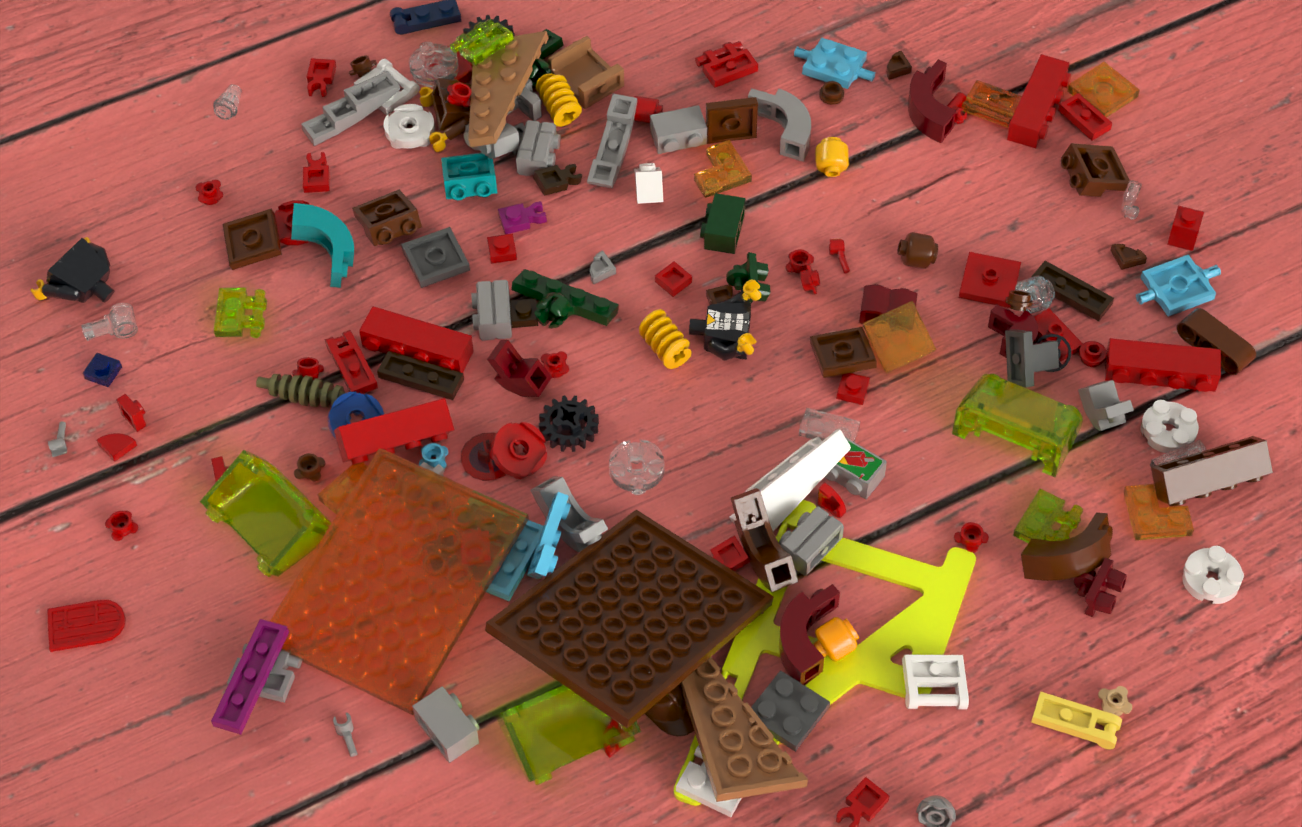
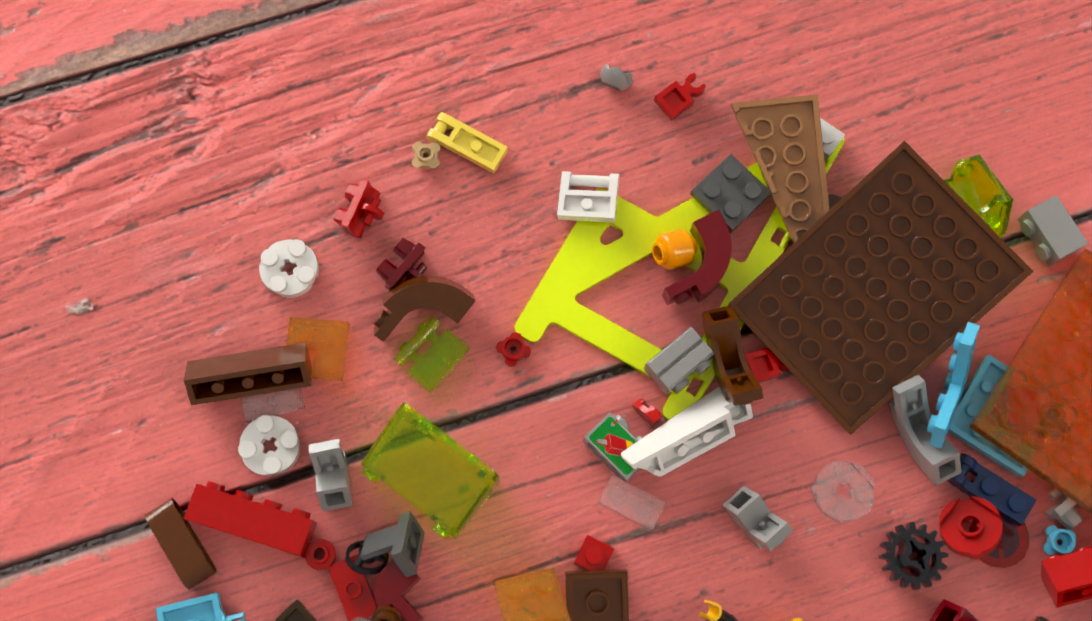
camera: 175 degrees left, 20 degrees up
(498, 486) = (1007, 498): none -> dark blue plate
(711, 428) = (756, 519): none -> light grey brick
(1159, 634) = (362, 209): none -> red hips

